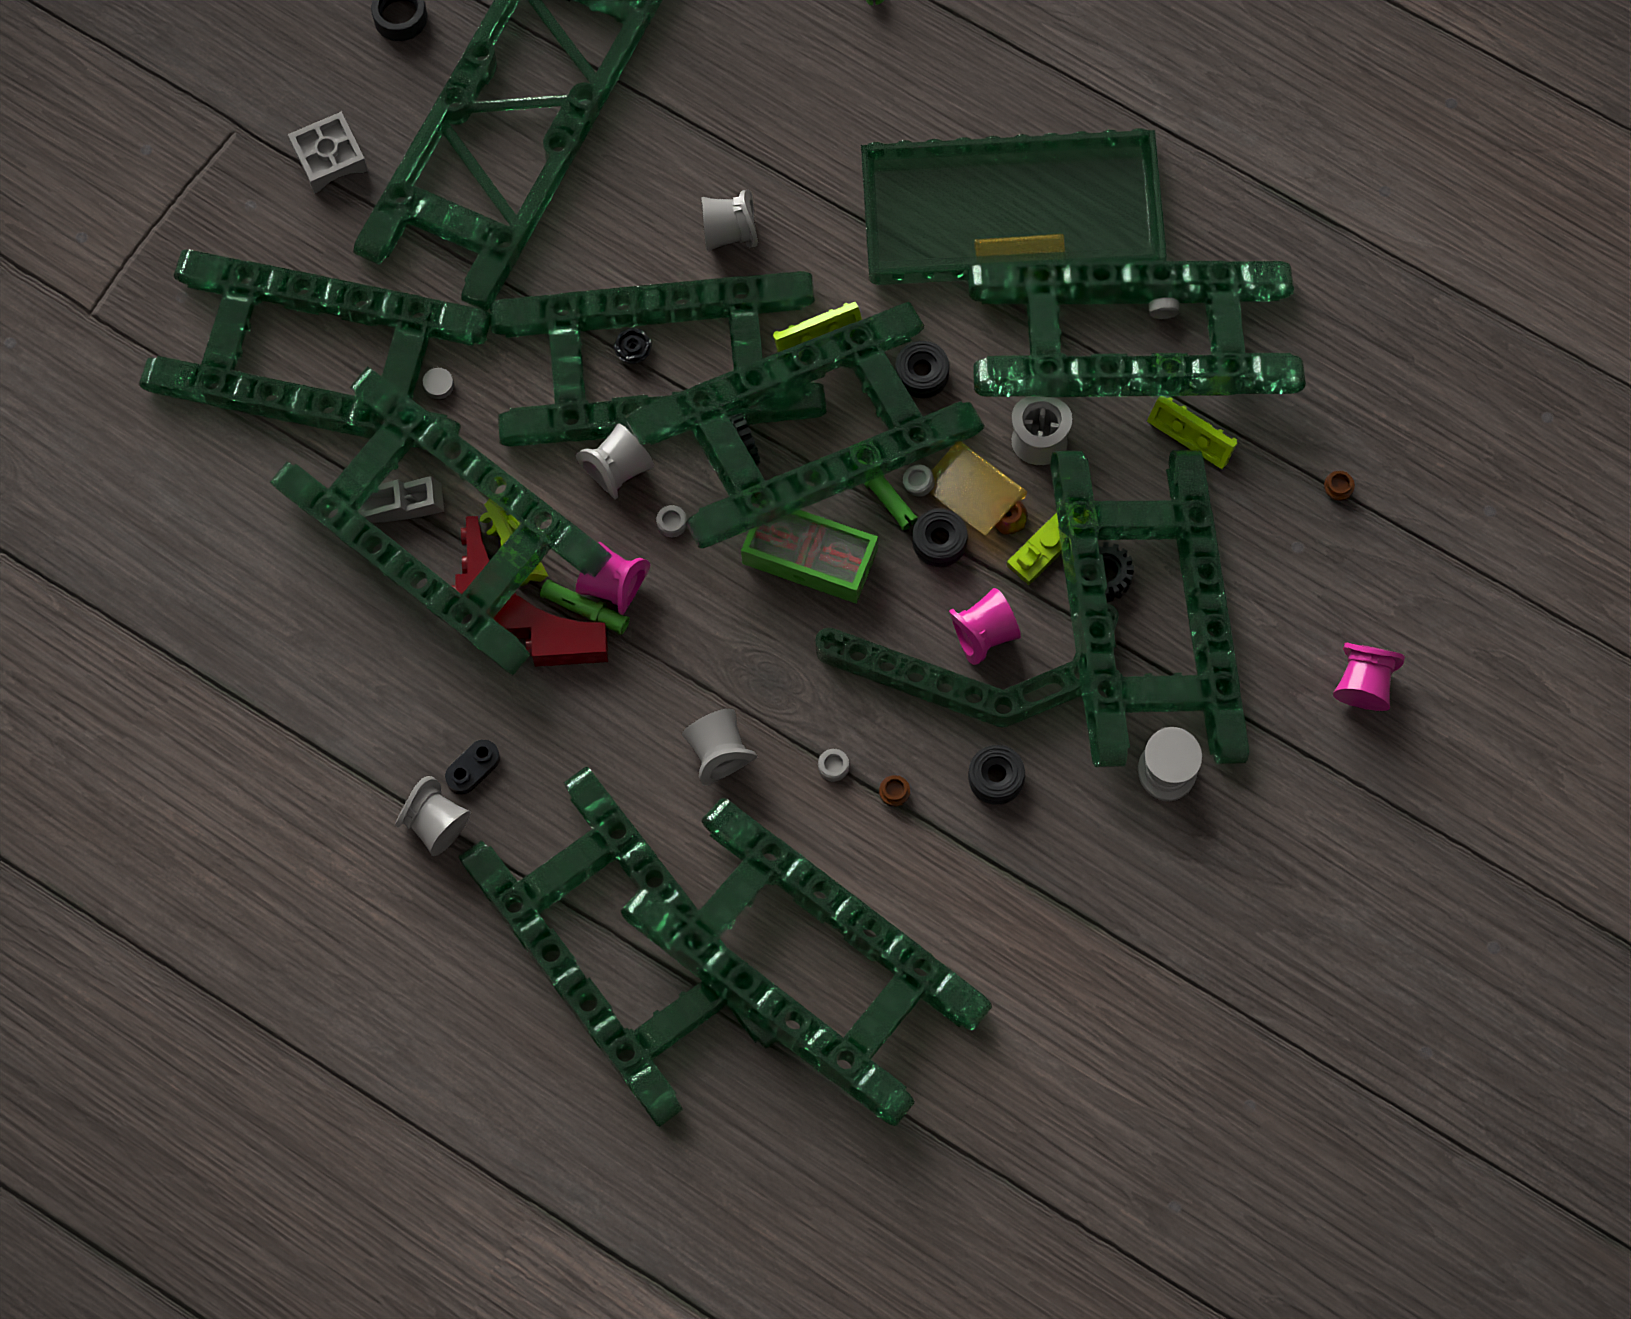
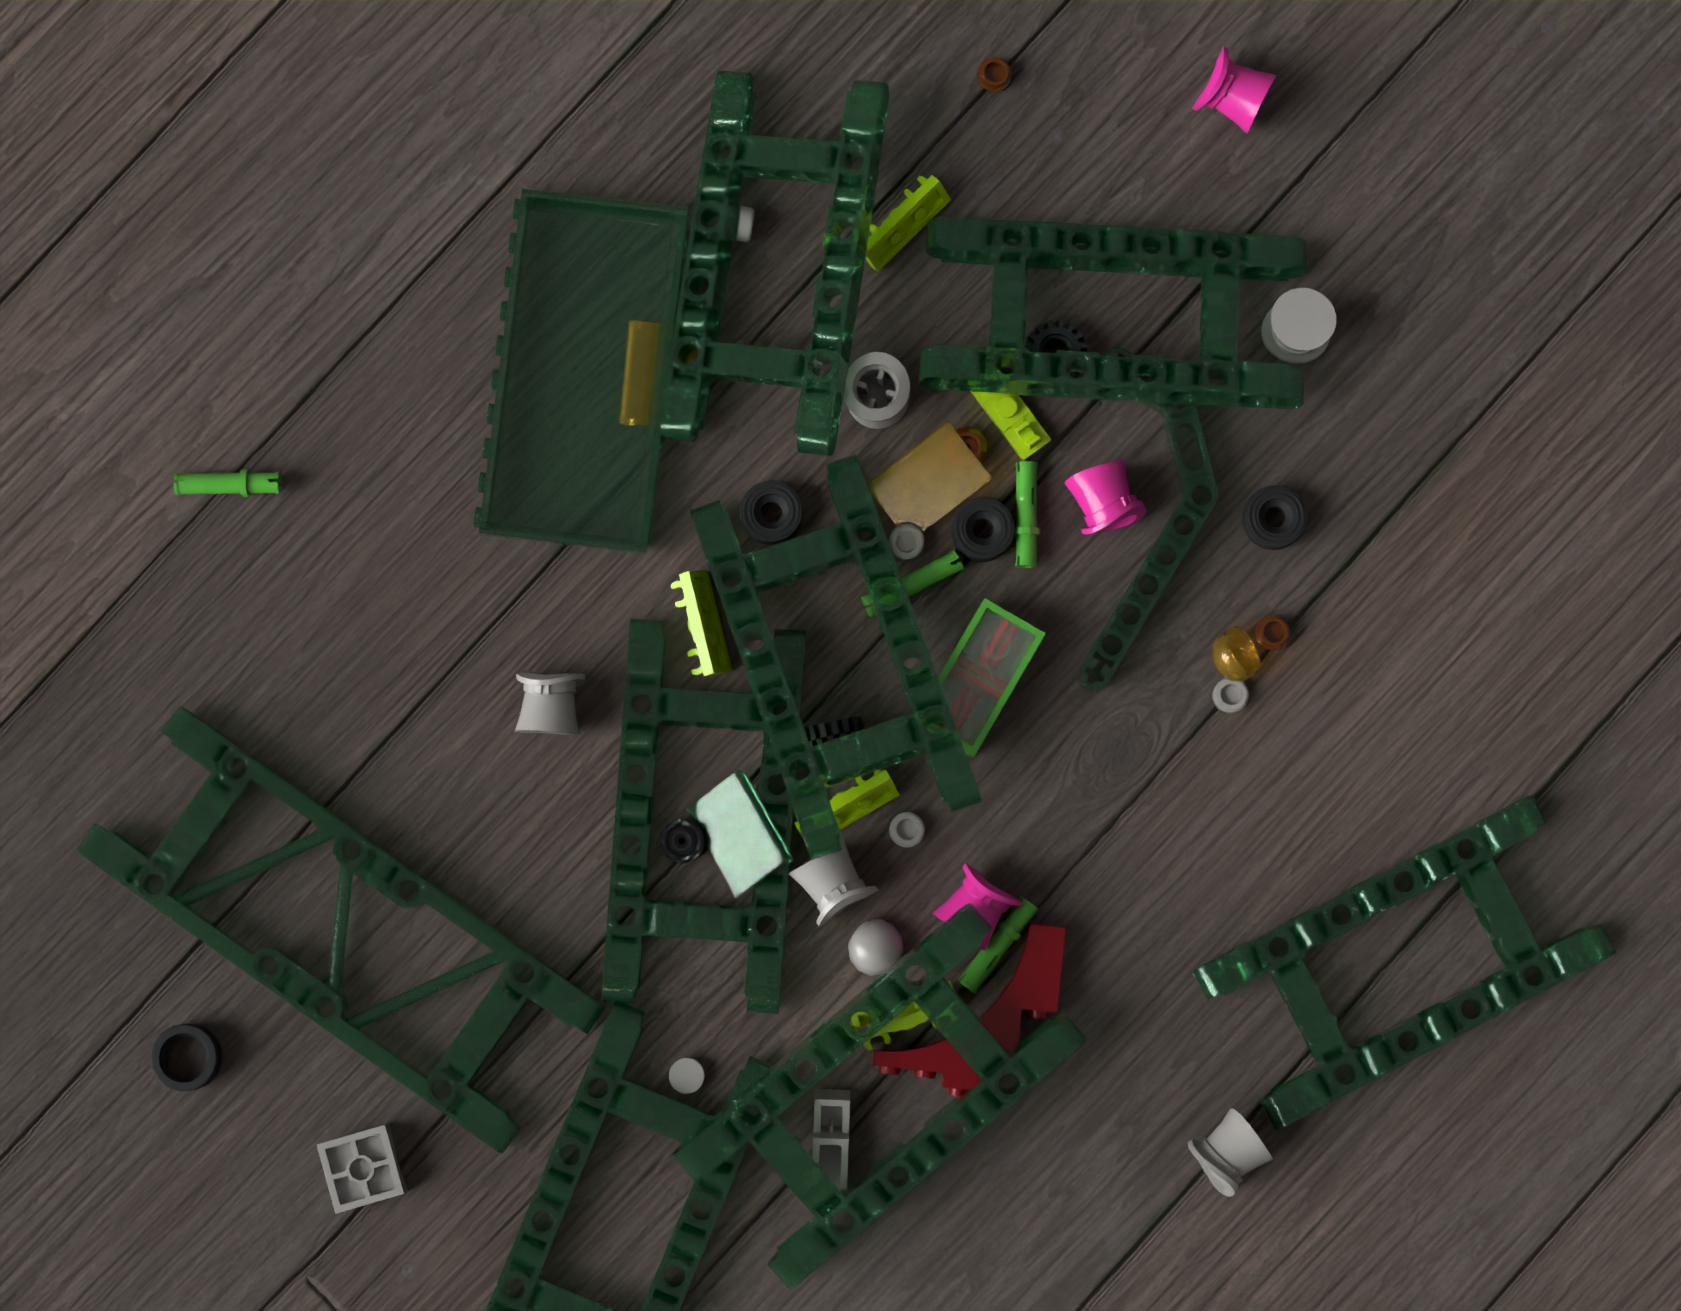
camera: 80 degrees left, 15 degrees up
(475, 768) = (1167, 1099): black plate -> none
(572, 506) = (875, 947): none -> light grey hair
(646, 383) = (739, 833): none -> clear green piece
(684, 471) = (862, 799): none -> lime plate
(718, 745) = (1199, 817): light grey hat -> none
(771, 1005) = (1511, 813): clear green beam -> none
(868, 759) = (1235, 655): none -> clear yellow hair
(958, 571) = (1026, 514): none -> bright green pin

